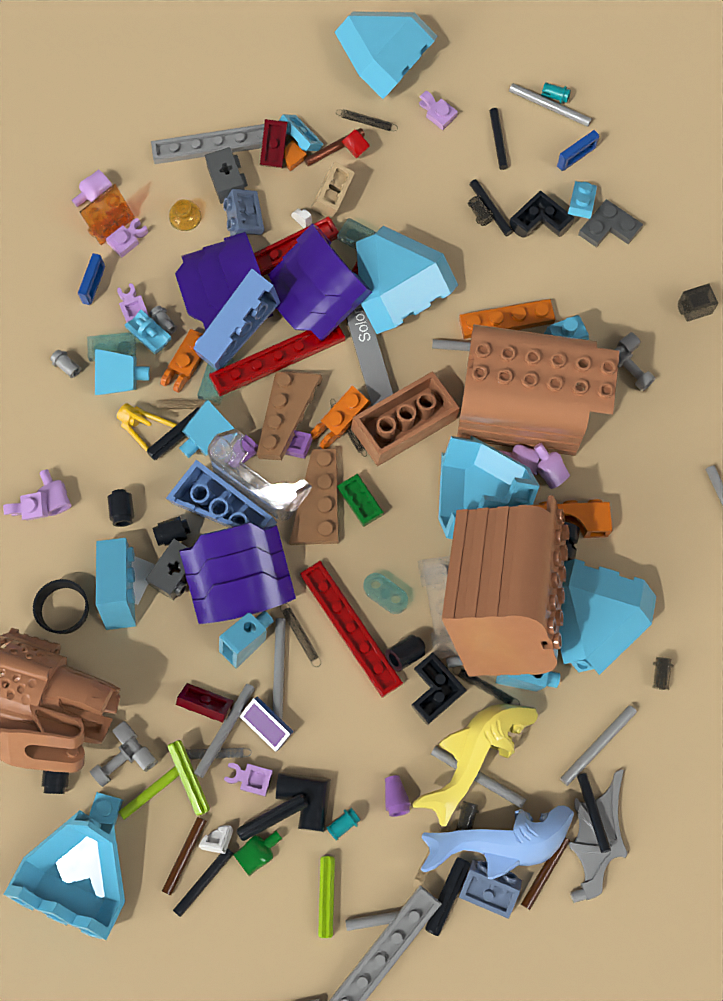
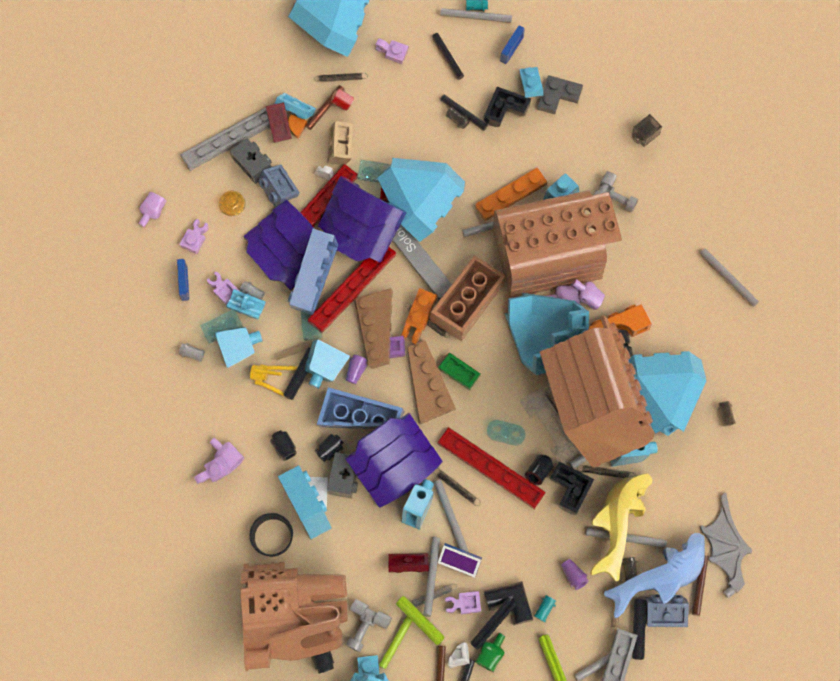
camera: 20 degrees left, 0 degrees up
(106, 214) = (174, 225): clear orange hinge -> none
(183, 363) = (282, 315): orange hinge -> none
(226, 460) = (352, 383): clear windscreen -> none
(594, 813) = (717, 530): black bar -> none
(598, 745) = (701, 482): light grey bar -> none

